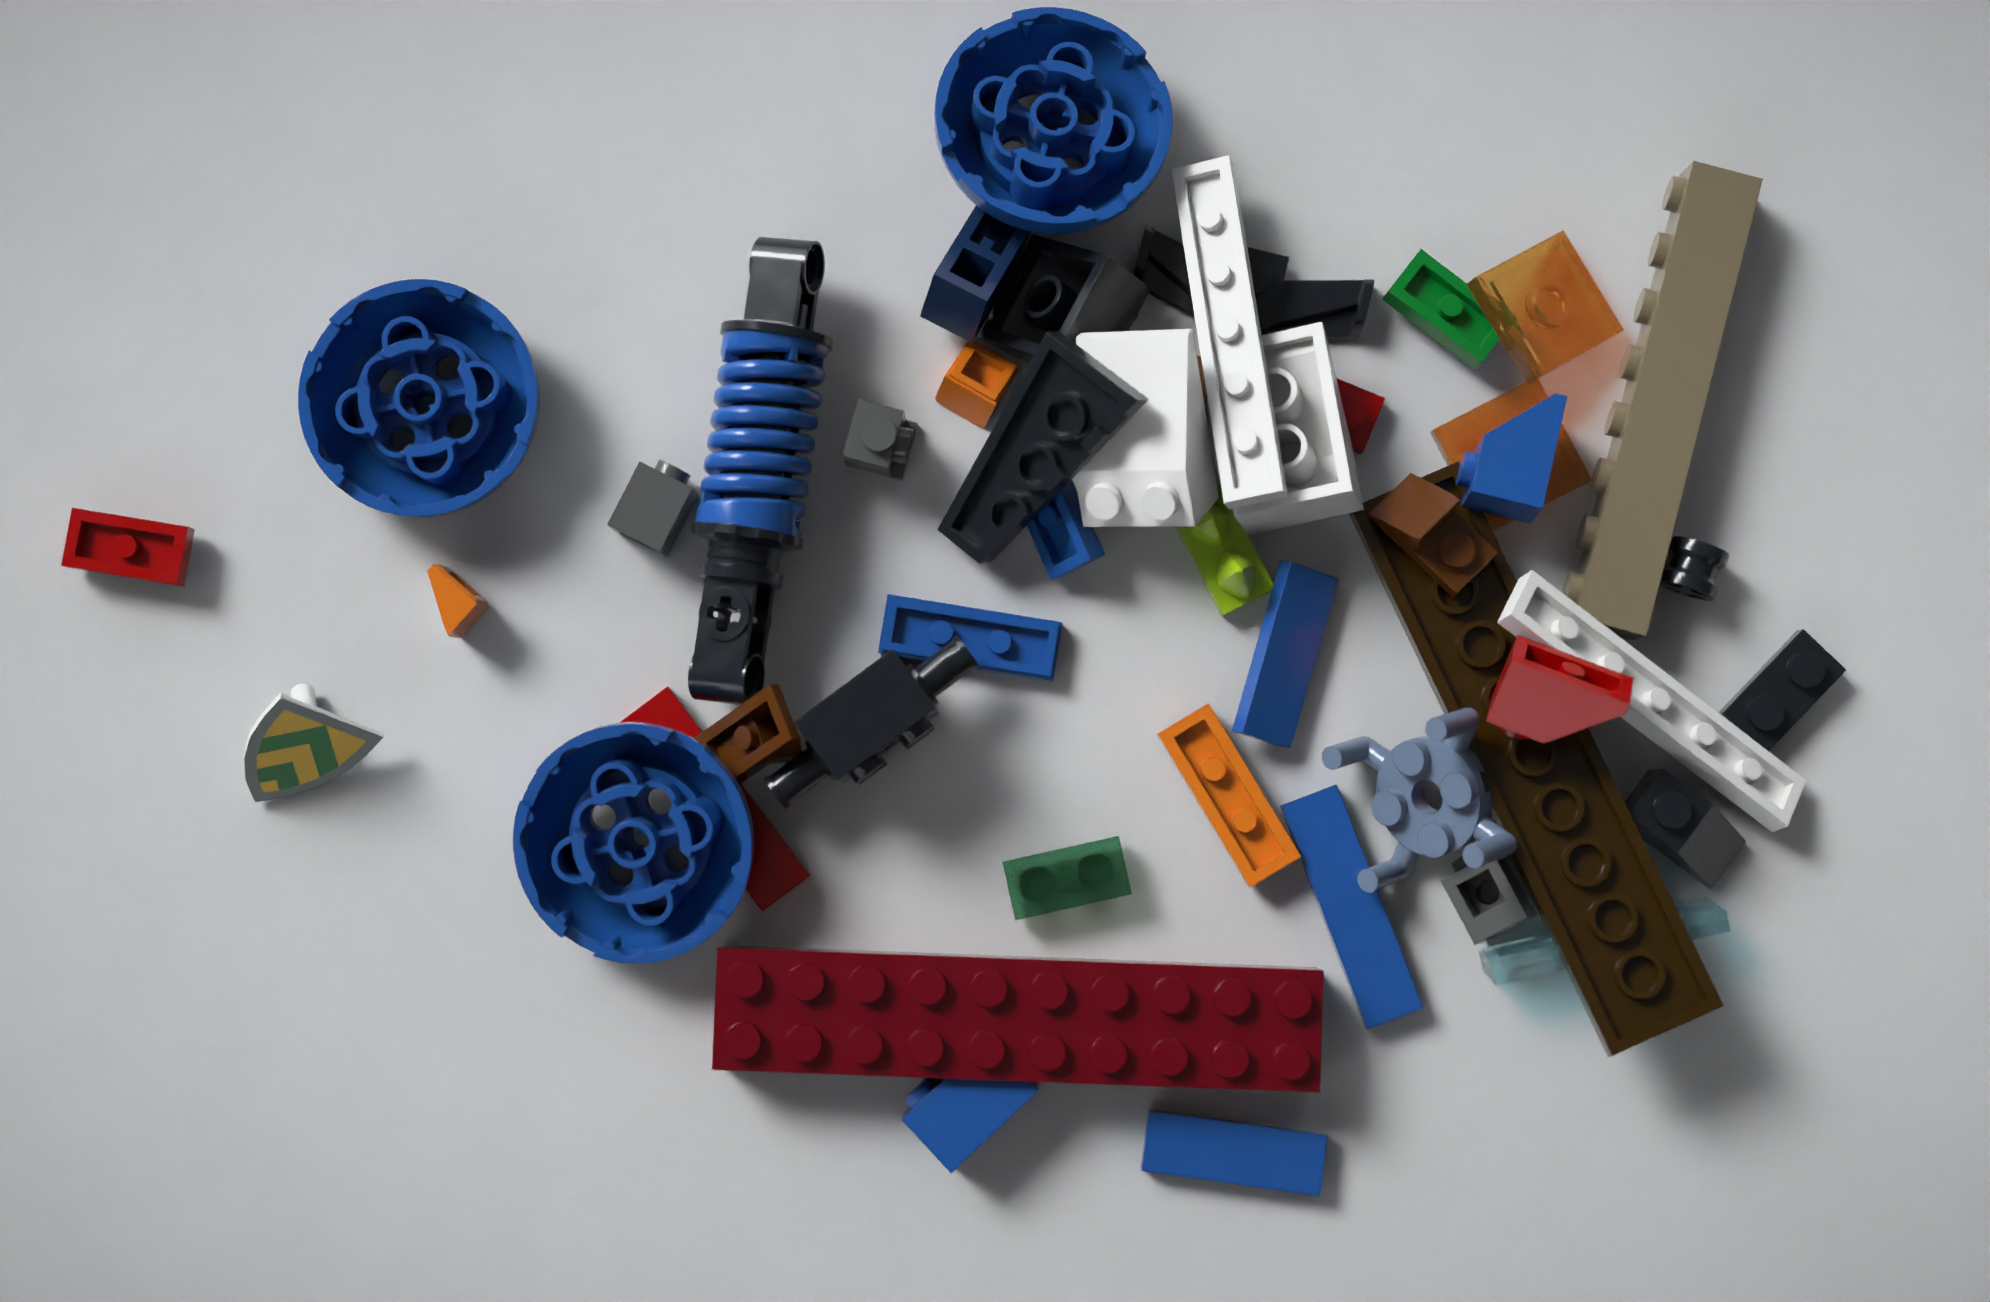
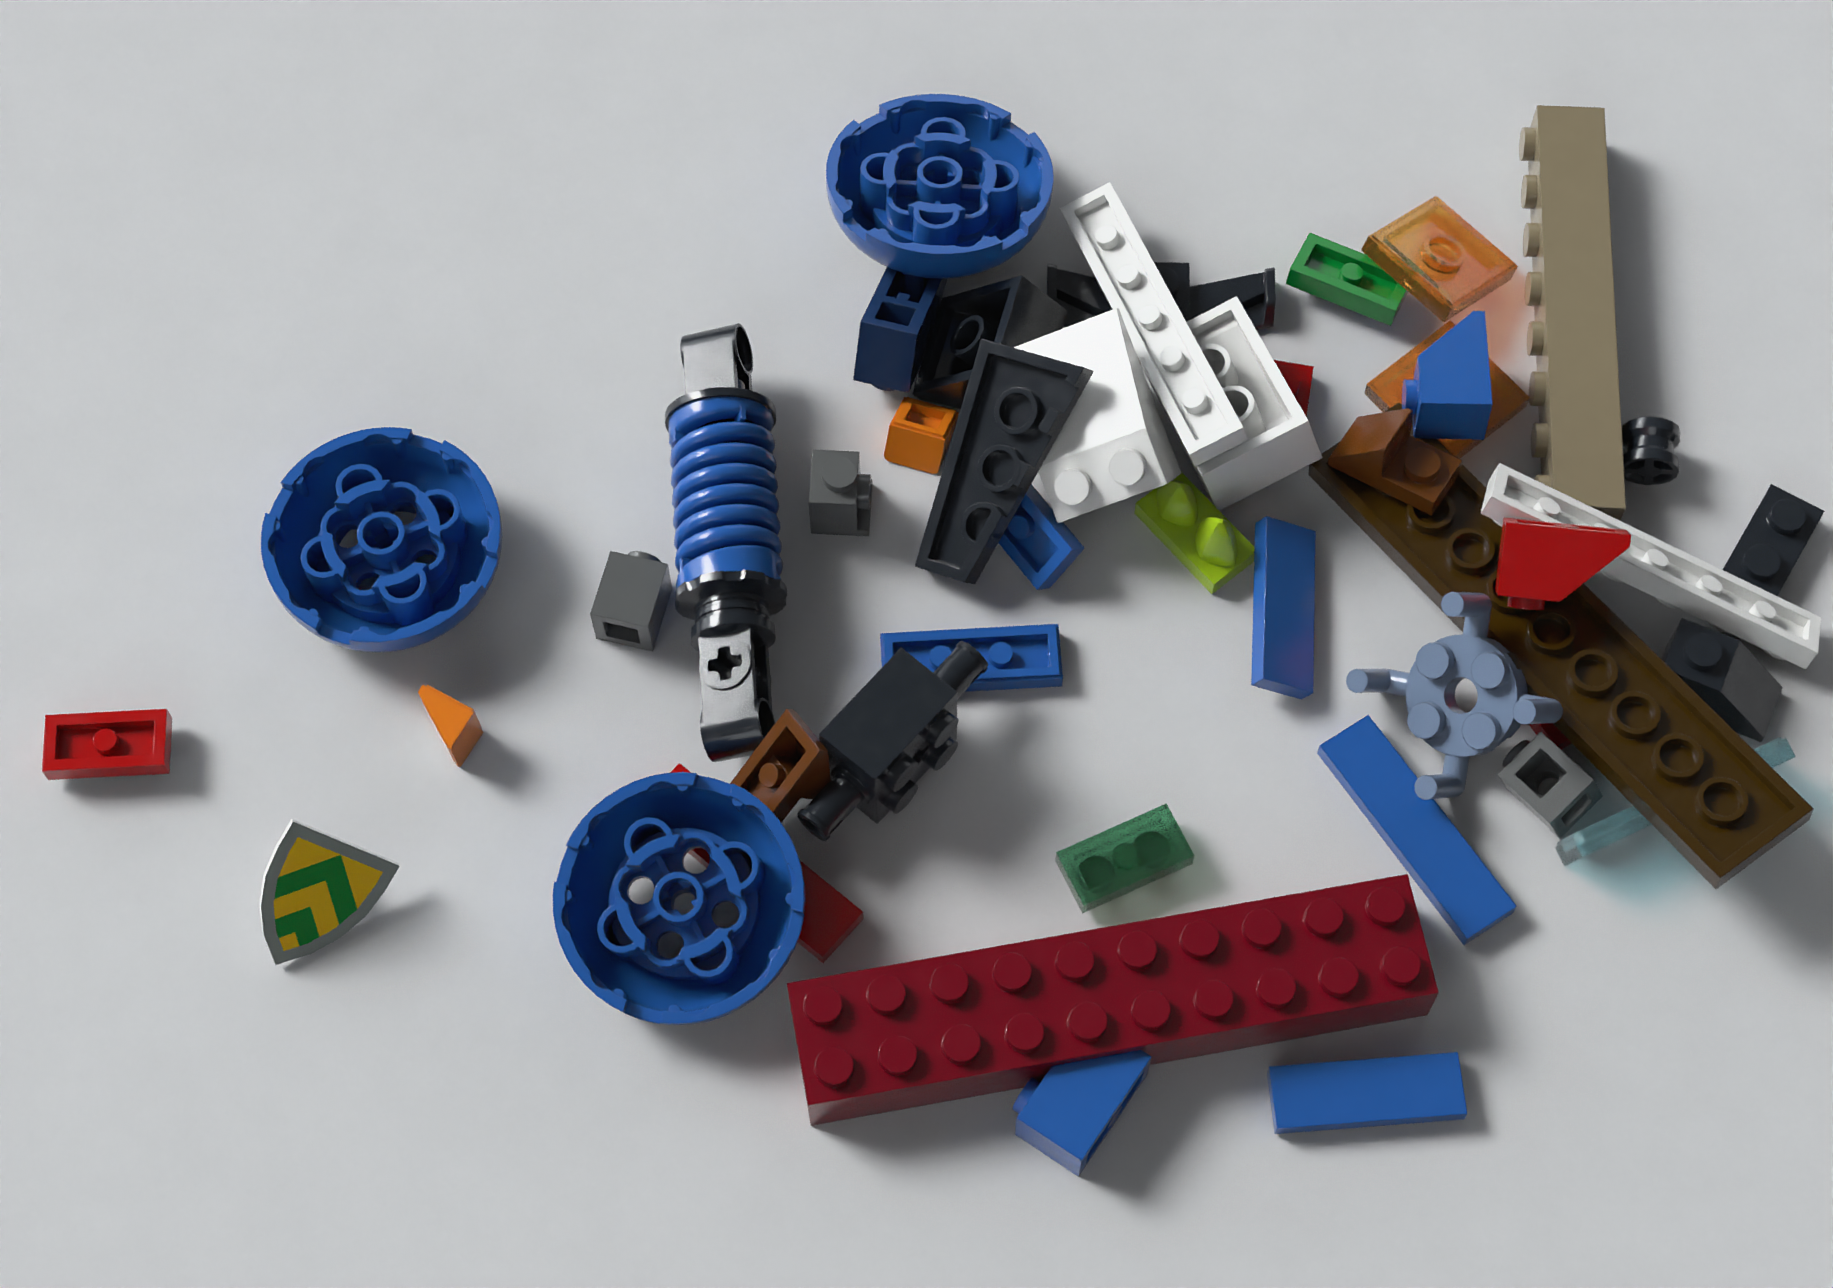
camera: 15 degrees left, 20 degrees down
(1228, 795) = (1265, 747): orange plate -> none

